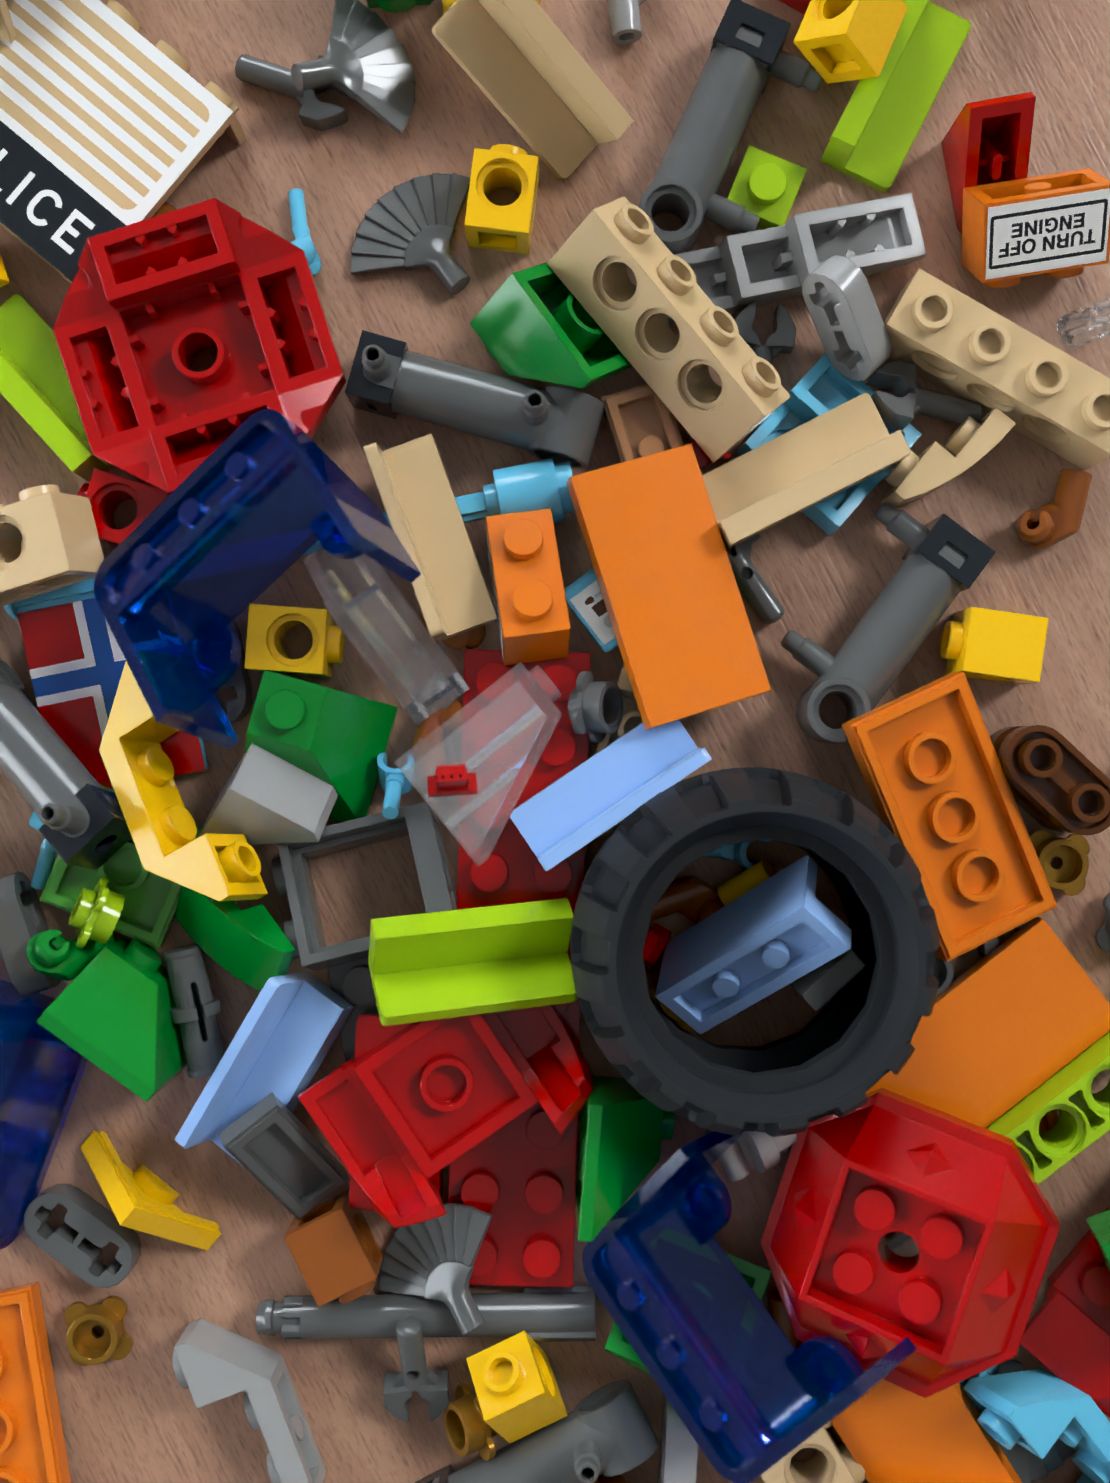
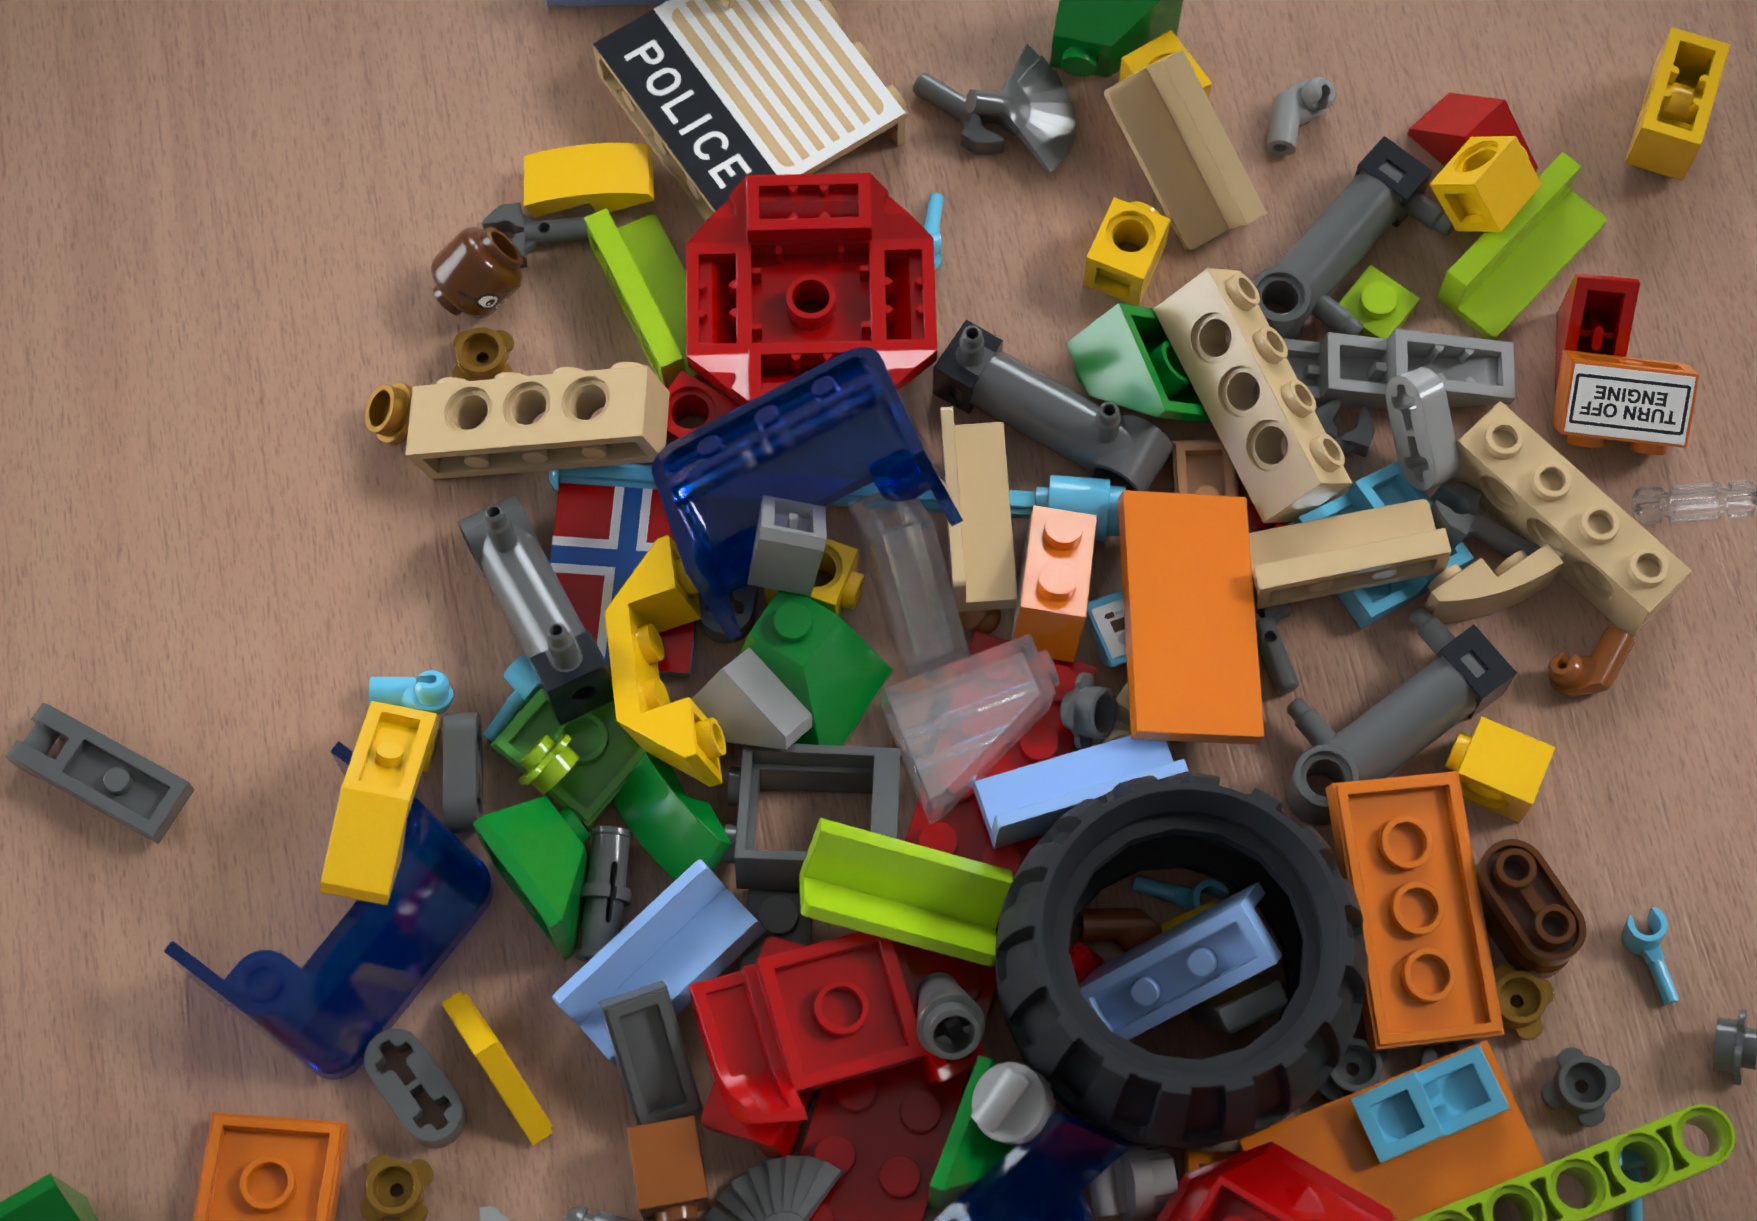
camera: 20 degrees right, 20 degrees down
(59, 956) = (496, 791): green arm -> none
(253, 630) = (788, 545): none -> light grey slope
(394, 784) = (871, 730): medium azure hand -> none
(414, 229) = (1037, 257): dark grey hand -> none
(451, 781) = (934, 716): red piece -> none
(548, 1069) = (948, 1018): none -> flat silver cone
(634, 1147) = (1012, 1103): none -> light grey piece
(1008, 999) = (1430, 1104): none -> medium azure slope

